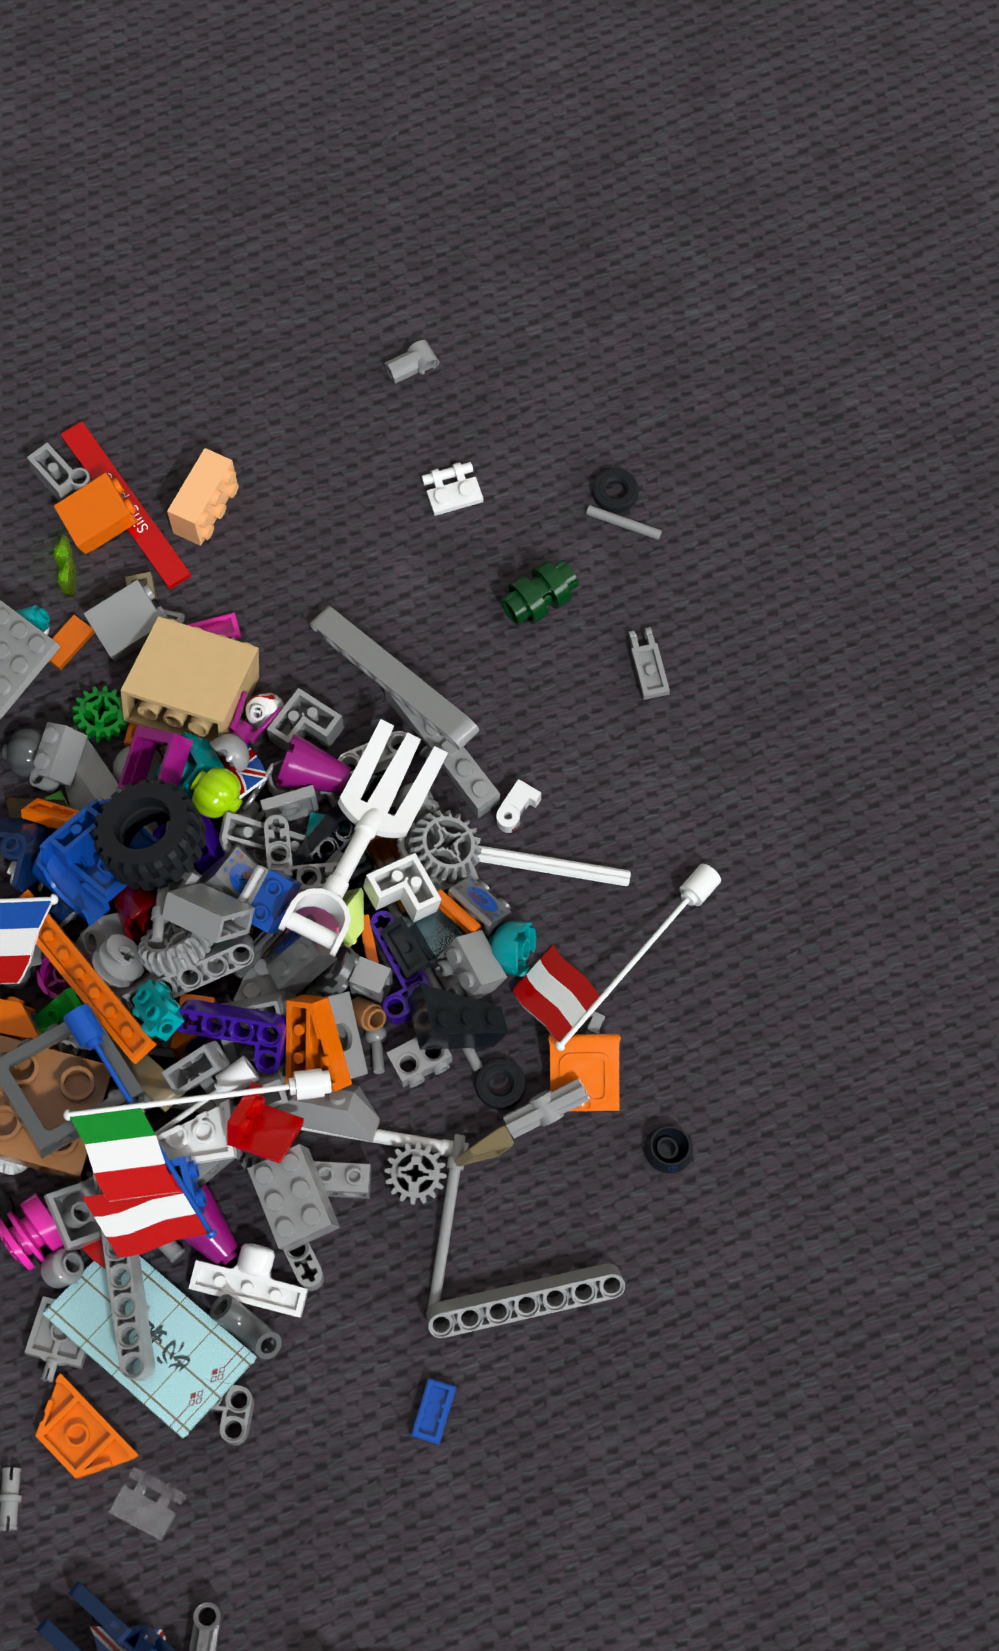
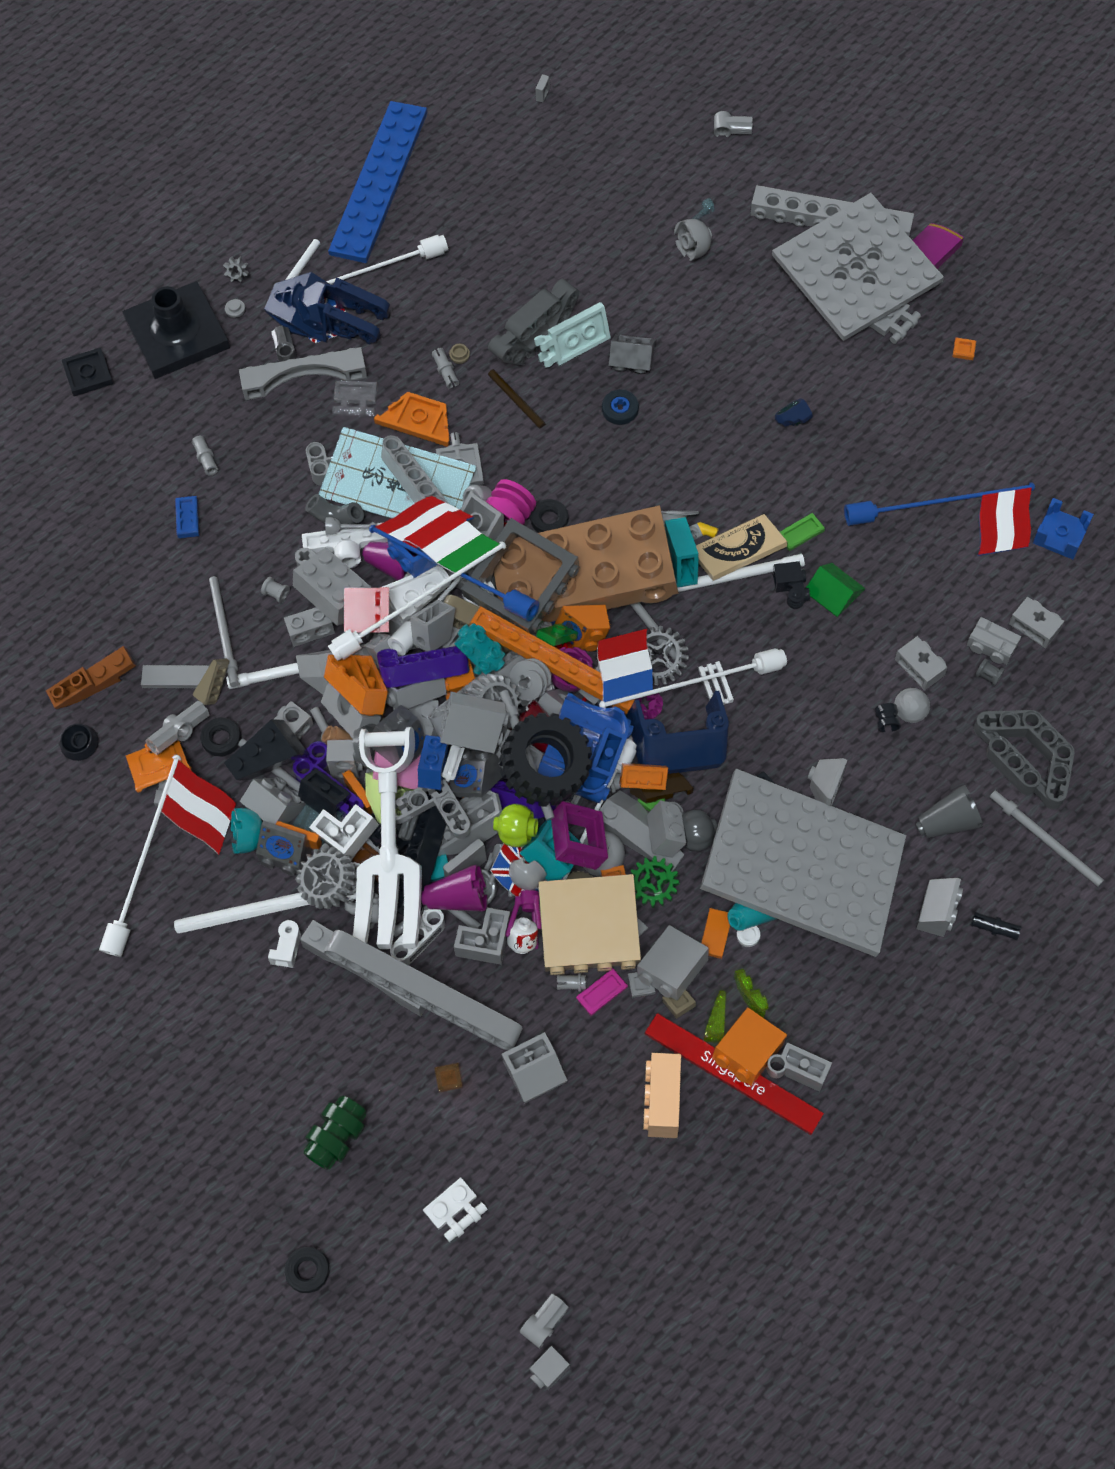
camera: 160 degrees right, 5 degrees down
(113, 554) = (715, 1027): none -> clear neon green slope
(136, 1561) = (262, 379): none -> light grey arch
(256, 1303) = (333, 525): none -> light grey hinge
(316, 582) = (534, 1067): none -> light grey slope
(363, 1252) = (275, 589): none -> light grey bush
(377, 1499) = (204, 455): none -> light grey pin
(405, 610) = (448, 1077): none -> clear orange tile
(416, 1159) = (257, 650): light grey gear -> none
(426, 322) = (548, 1369): none -> light grey brick
(511, 1295) = (146, 601): light grey beam -> none
(526, 1188) = (172, 676): none -> light grey tile
(624, 522) = (297, 1242): light grey bar -> none
(628, 1221) = (88, 682): none -> dark orange slope
(648, 666) = (219, 1111): light grey hinge -> none

